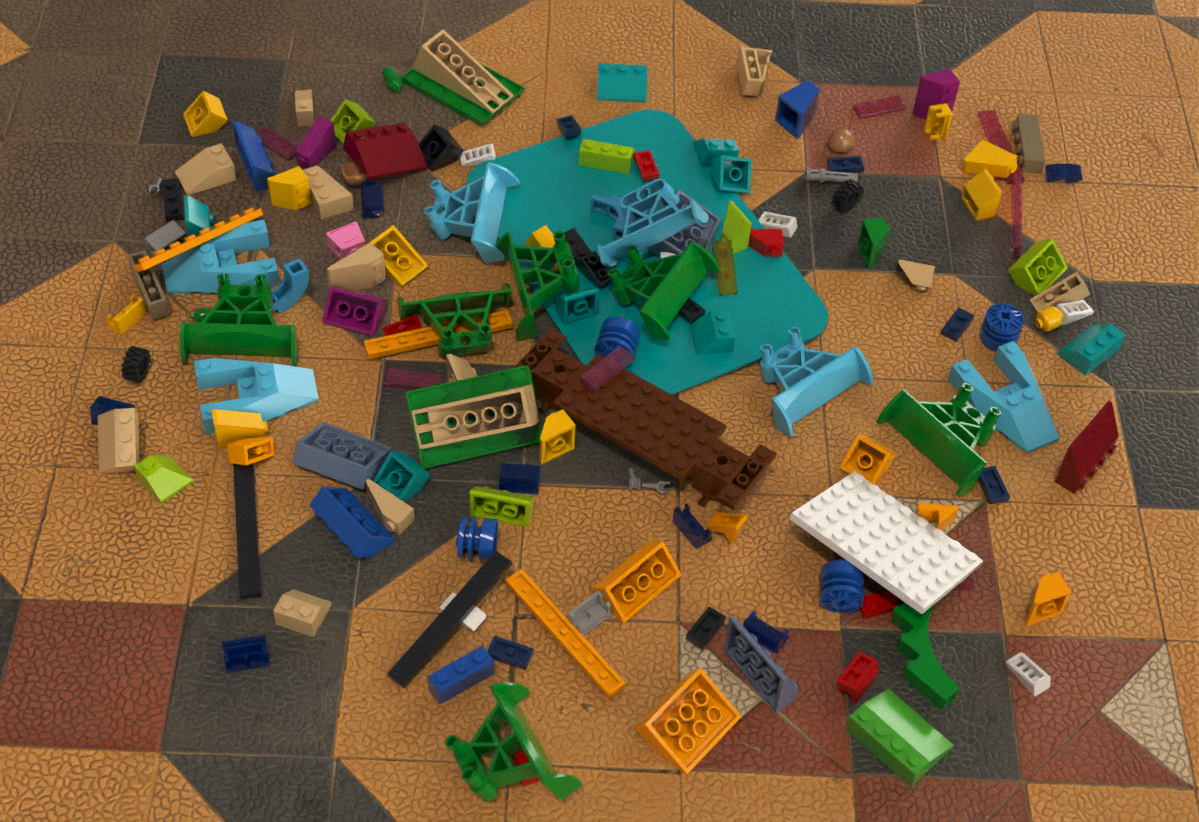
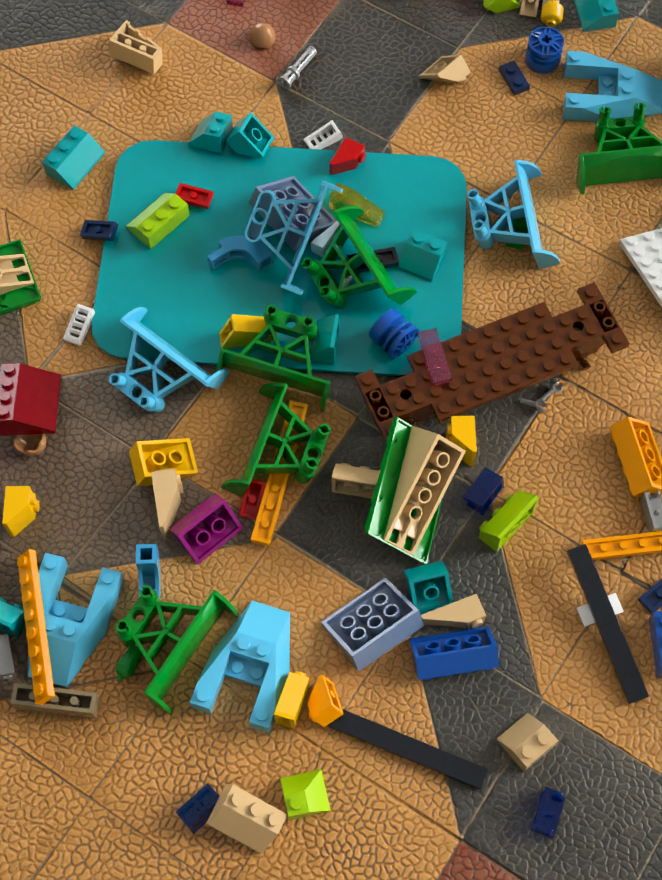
camera: 55 degrees left, 15 degrees up
(127, 316) = (76, 740): yellow hinge -> none
(136, 364) = (155, 758): black tyre -> none
(327, 194) = (45, 479): tan wedge -> none
(345, 240) = (117, 492): bright pink torso -> none
(371, 199) = (74, 444): clear blue hinge -> none
(411, 379) = (319, 520): clear pink tile -> none
(439, 148) = (49, 352): black slope -> none
(477, 538) = (538, 558): blue wheel -> none
(585, 260) = (287, 302): black slope -> none
(691, 527) = (609, 388): clear blue hinge -> none
(729, 523) = (625, 359): light orange slope -> none
(736, 228) = (320, 168): lime slope -> none
(797, 108) = (211, 42): blue slope -> none
(847, 195) = (334, 67): black tyre -> none
(849, 164) = (292, 48): dark blue plate -> none
(868, 458) = (615, 221): light orange slope -> none
(873, 240) = (399, 81): green slope -> none

